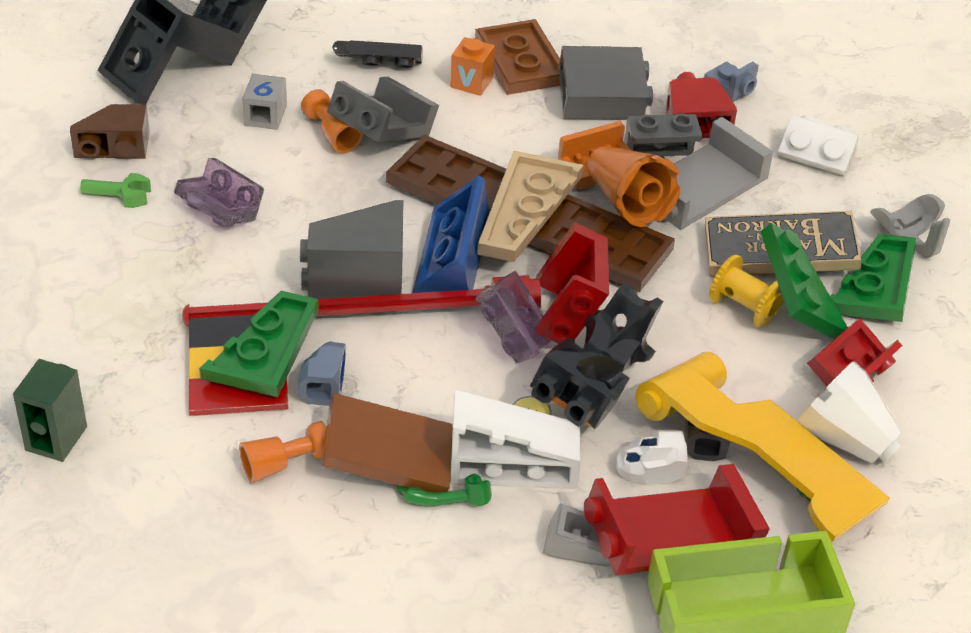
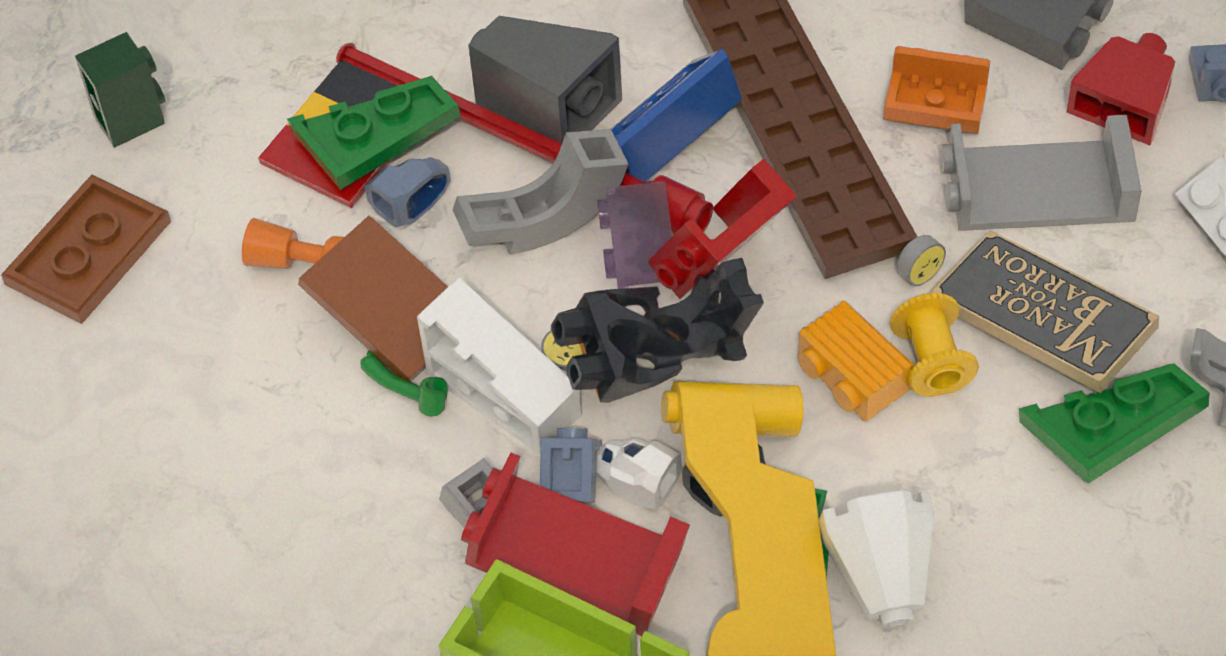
camera: 45 degrees right, 10 degrees up
(114, 539) = (86, 248): none -> dark orange tile
(438, 325) = (552, 203): none -> light grey arch
(524, 203) = (785, 102): tan wing -> none
(617, 473) = (570, 464): none -> sand blue bracket
(635, 183) = (914, 149): orange cone -> none
(663, 134) = (1036, 100): dark grey bracket -> none
(686, 251) = (921, 260): none -> tile
(713, 324) = (854, 361): none -> light orange brick
(800, 284) = (989, 372): green wing -> none
(853, 344) = (974, 490): red bracket -> none

